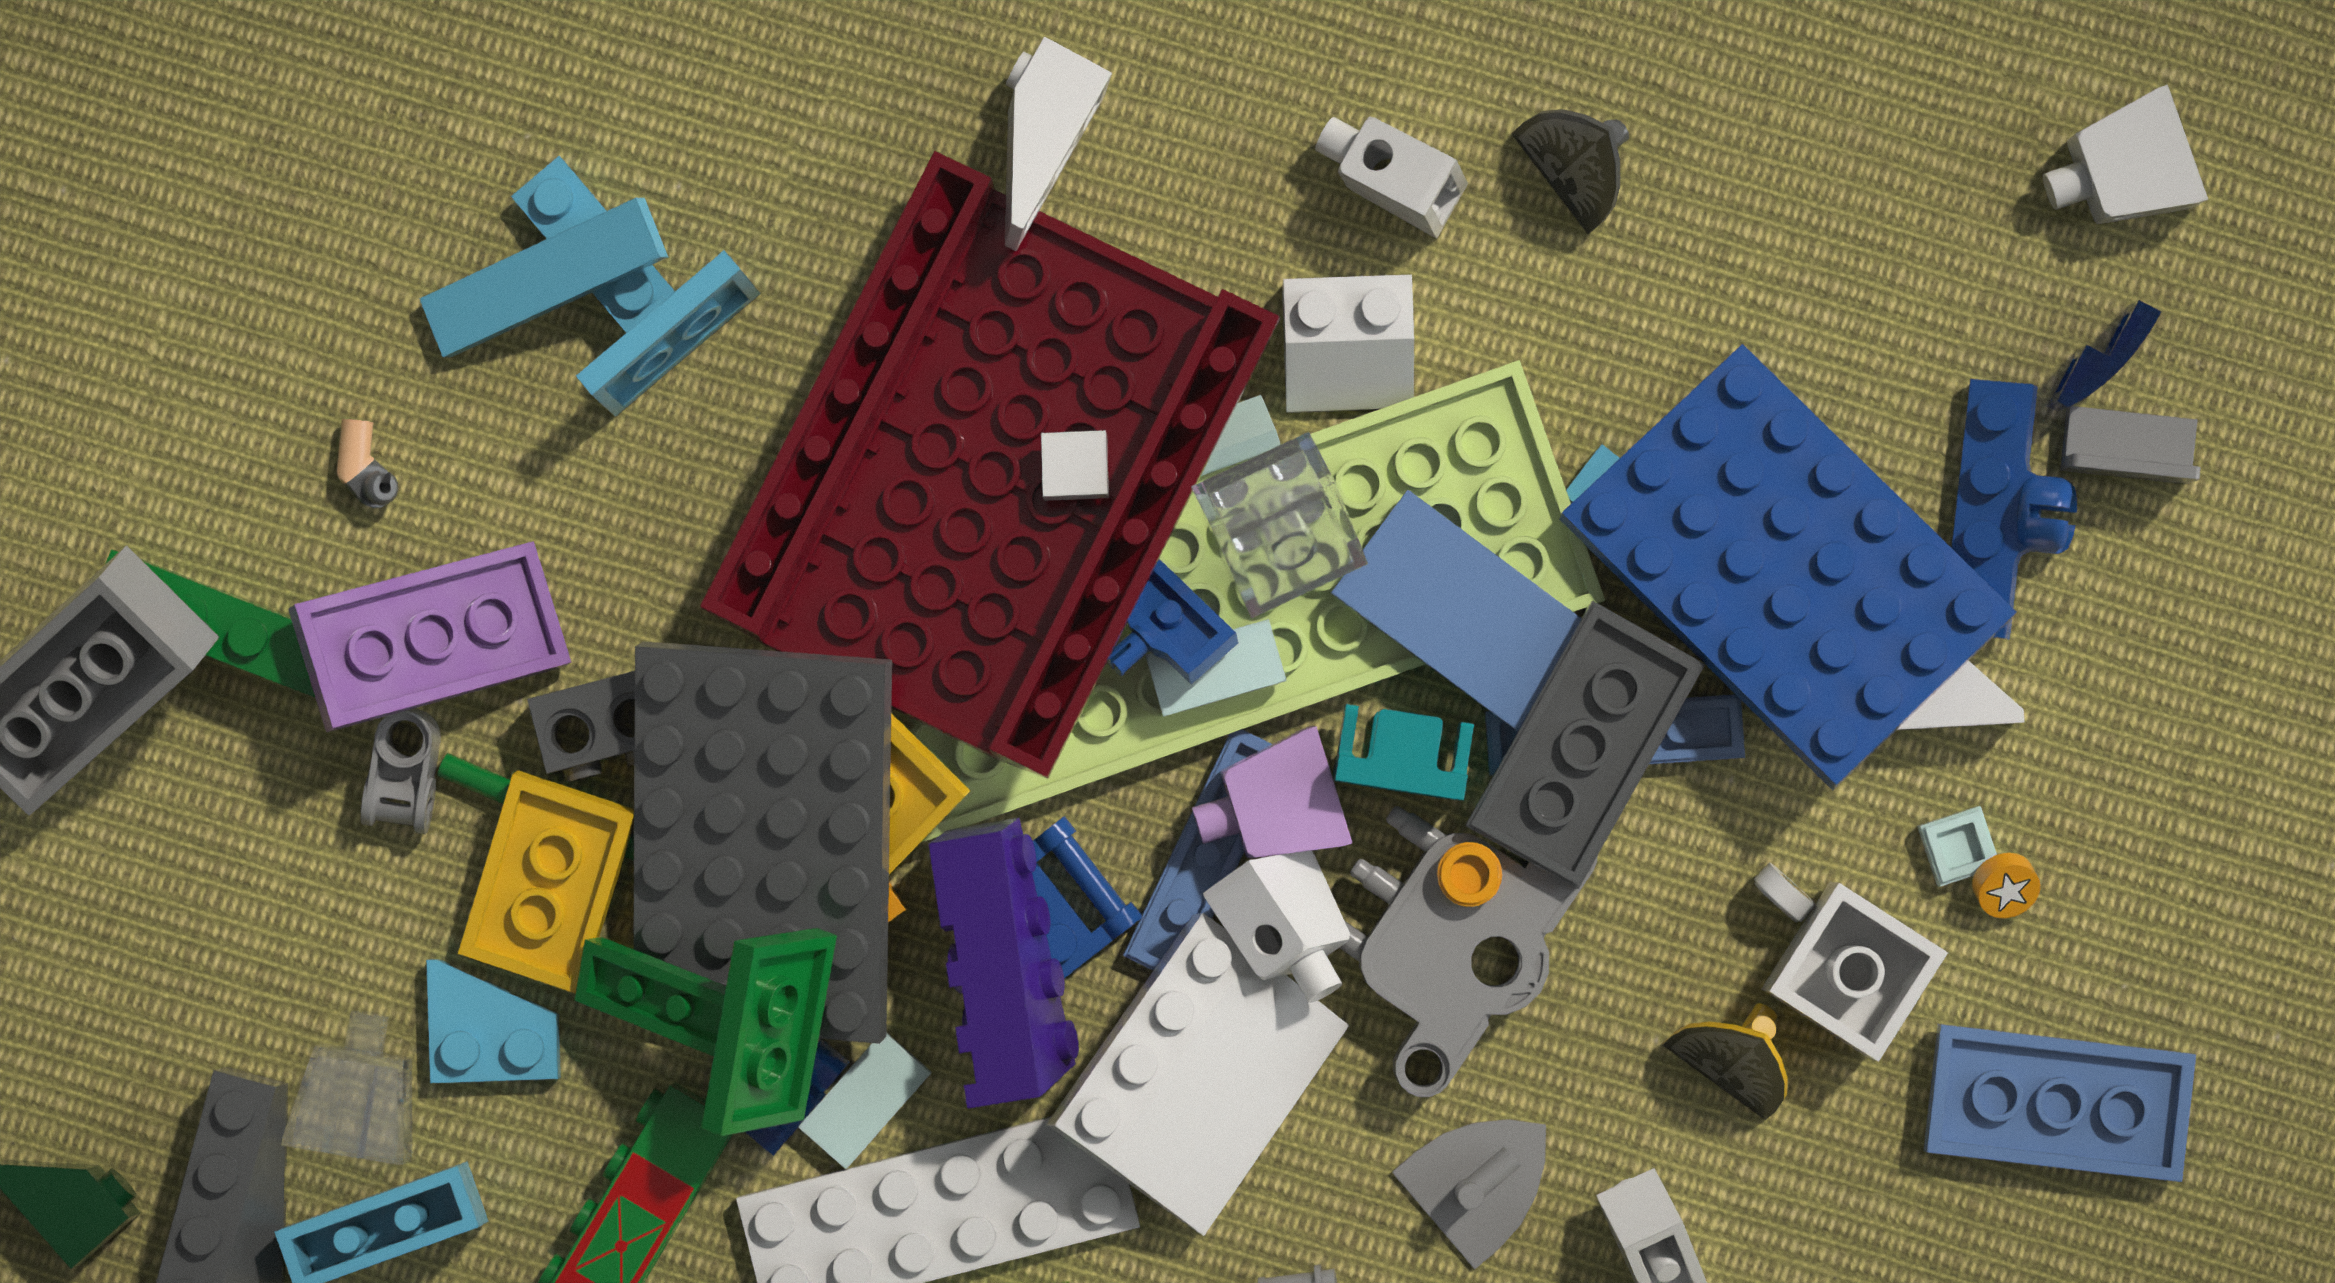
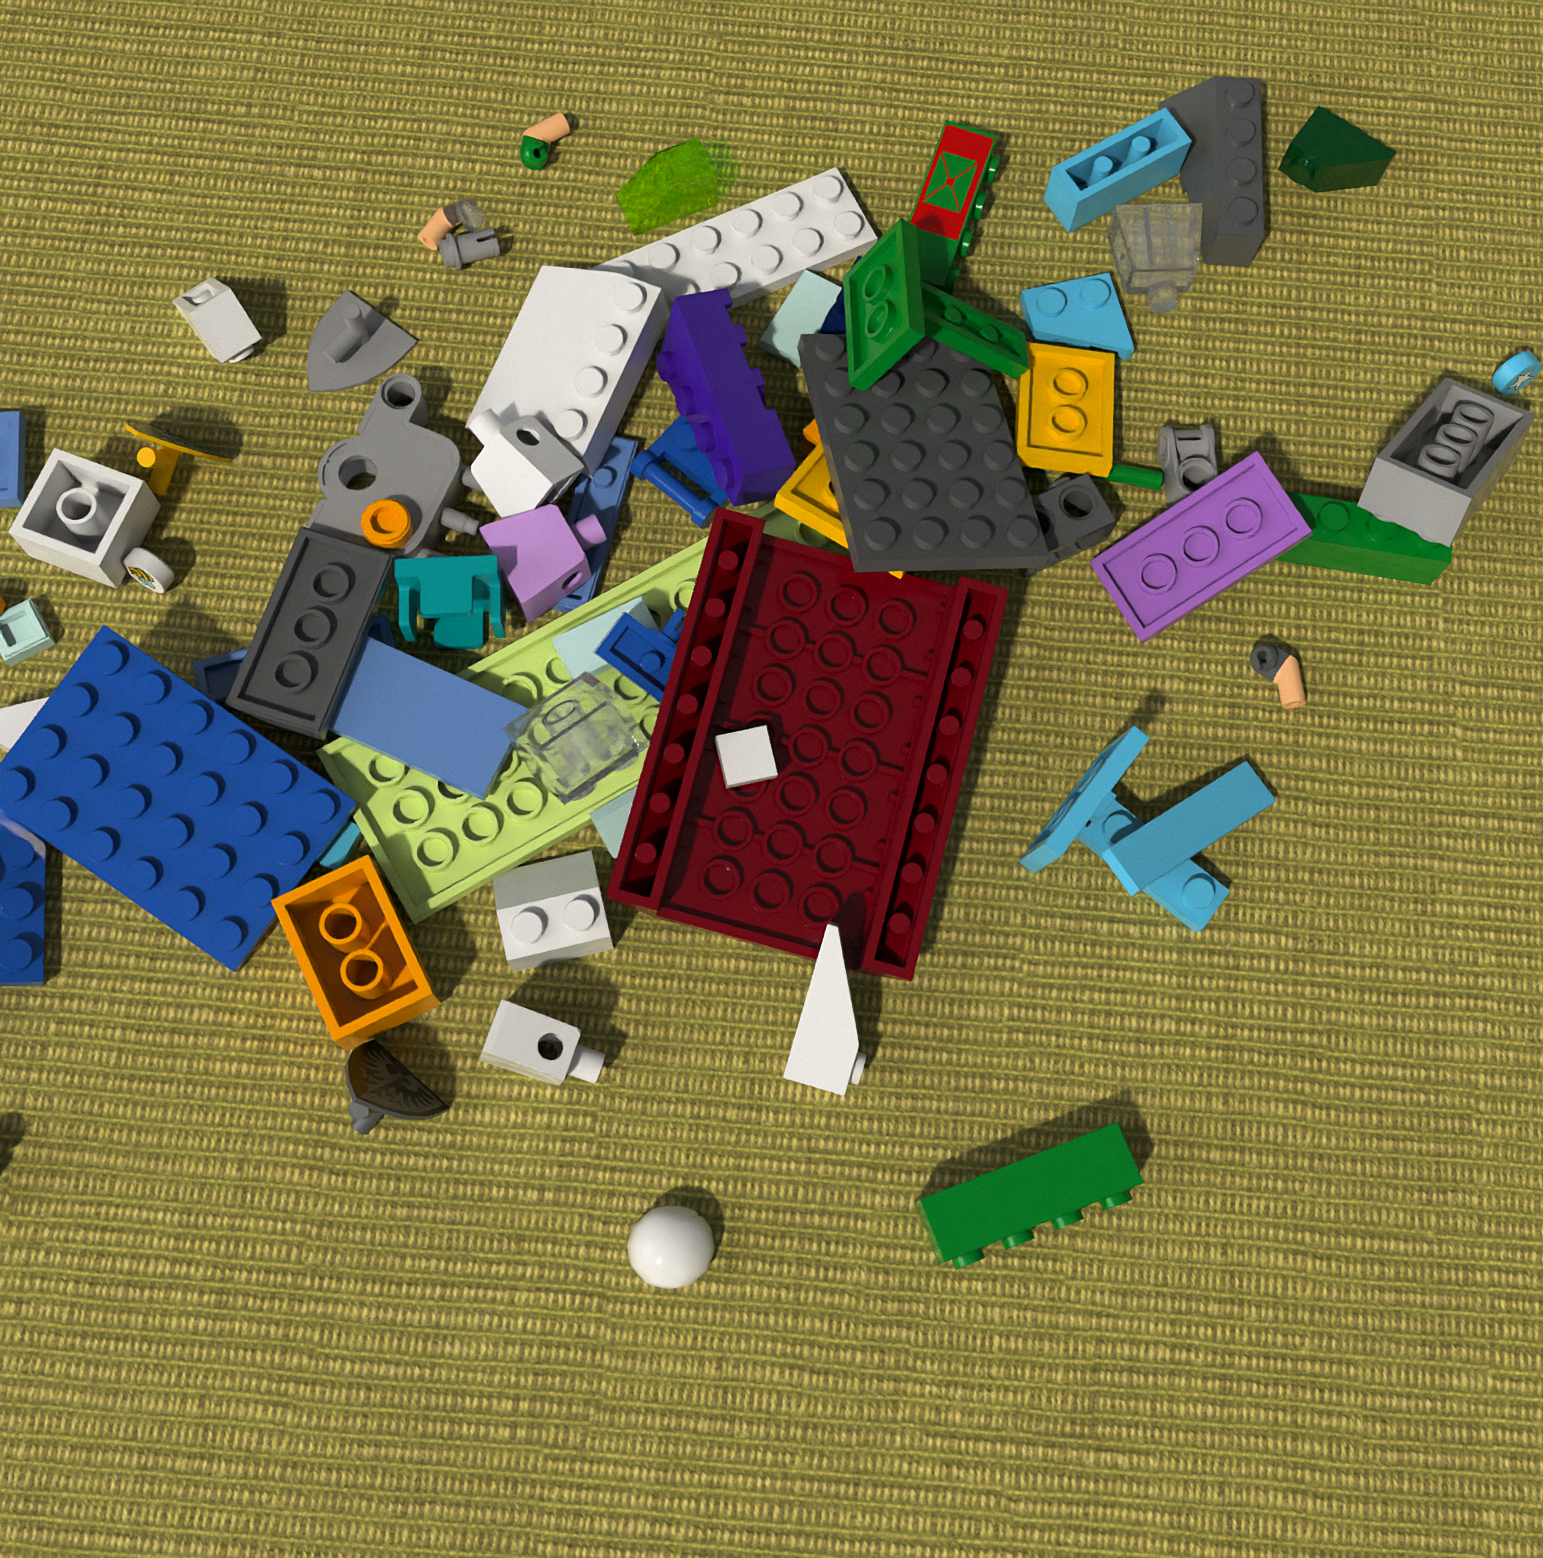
camera: 160 degrees right, 15 degrees down
(1590, 327) = (355, 953): none -> light orange brick

